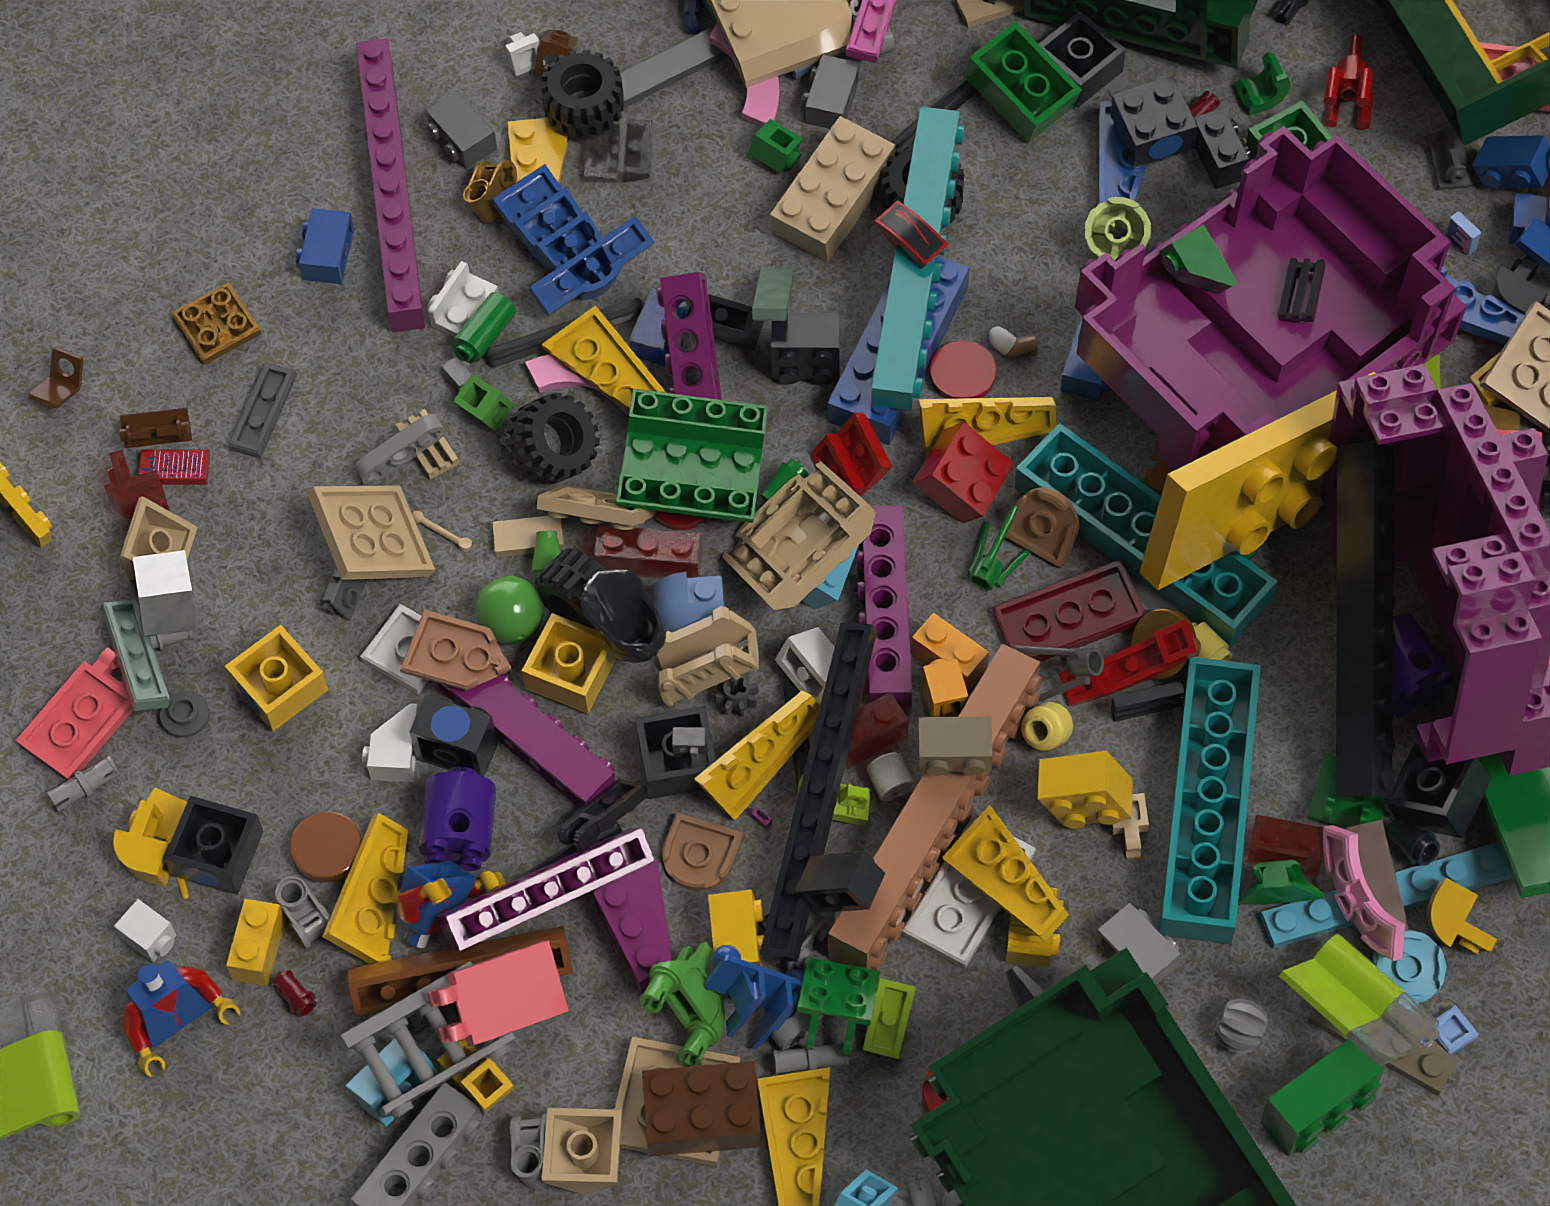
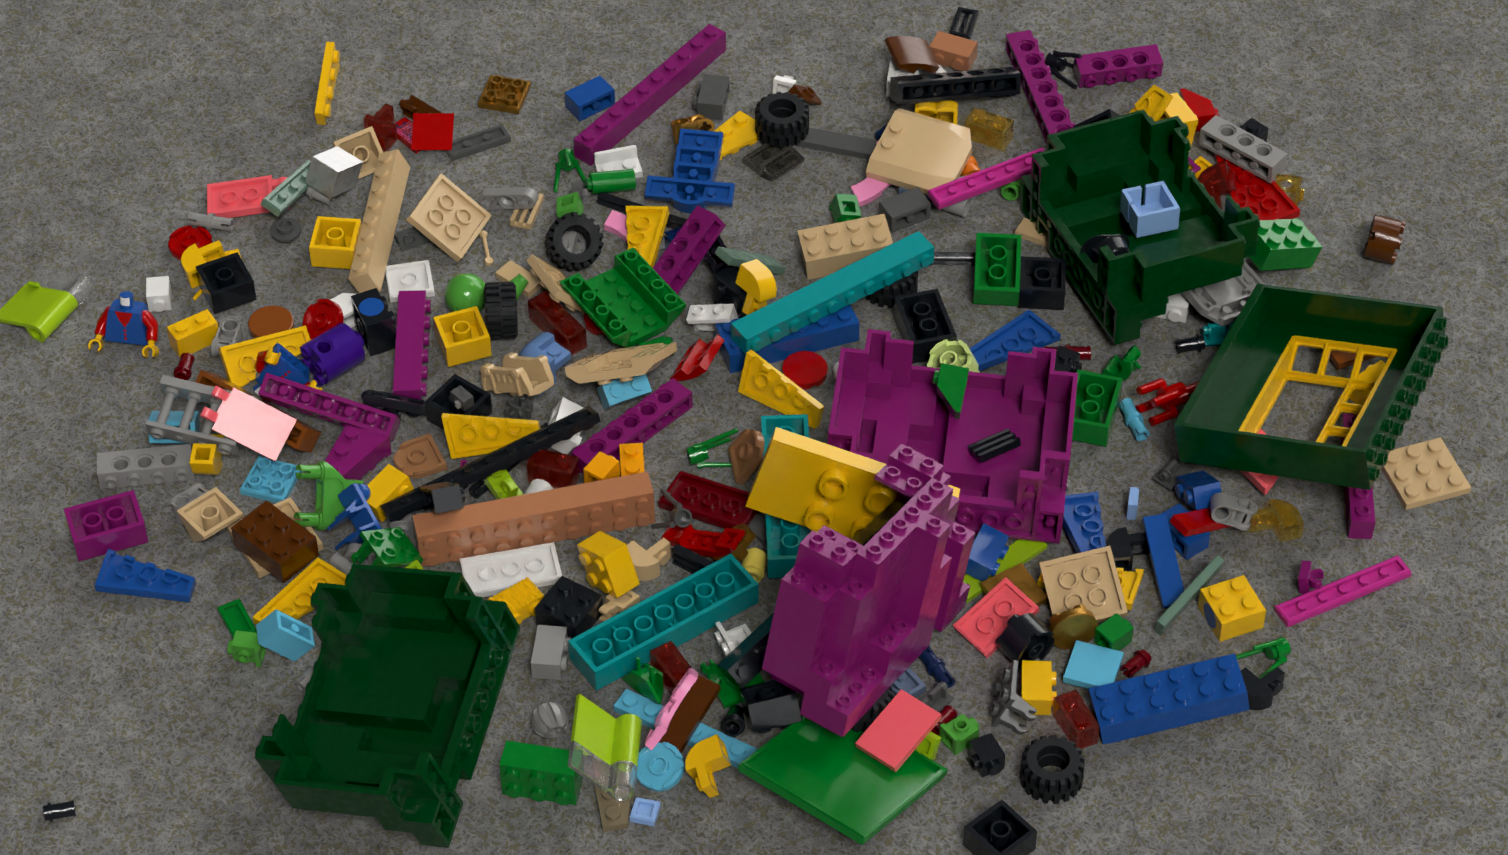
camera: 45 degrees right, 15 degrees down
(59, 385) = (407, 68): reddish brown bracket -> none
(91, 843) = (181, 239): none -> red tile
(205, 441) = (432, 131): none -> red sticker
(292, 608) = (379, 221): none -> tan brick
(390, 787) = (322, 317): none -> red tile
(401, 346) = (567, 162): none -> green plant
(453, 652) = (416, 288): nougat tile -> none
(576, 1038) = (270, 480): none -> medium azure tile
(623, 614) = (498, 324): black hair -> none
(809, 395) = (706, 316): none -> white bracket
(839, 314) = (758, 283): none -> yellow brick
(913, 233) = (834, 274): slope -> none
(955, 745) = (562, 484): dark tan brick -> none
(963, 472) = (737, 401): red brick -> none
(1003, 872) = (525, 565): yellow wing -> none
(1028, 211) = (924, 320): none -> black brick
(1047, 726) = (633, 529): light yellow head -> none
(1096, 878) = (569, 606): none -> black brick
(1100, 737) = (648, 561): none -> tan brick
(1153, 121) = (1035, 328): black brick -> none
(1304, 750) = (732, 638): none -> white bracket
(1357, 141) = (1134, 419): none -> medium azure pin

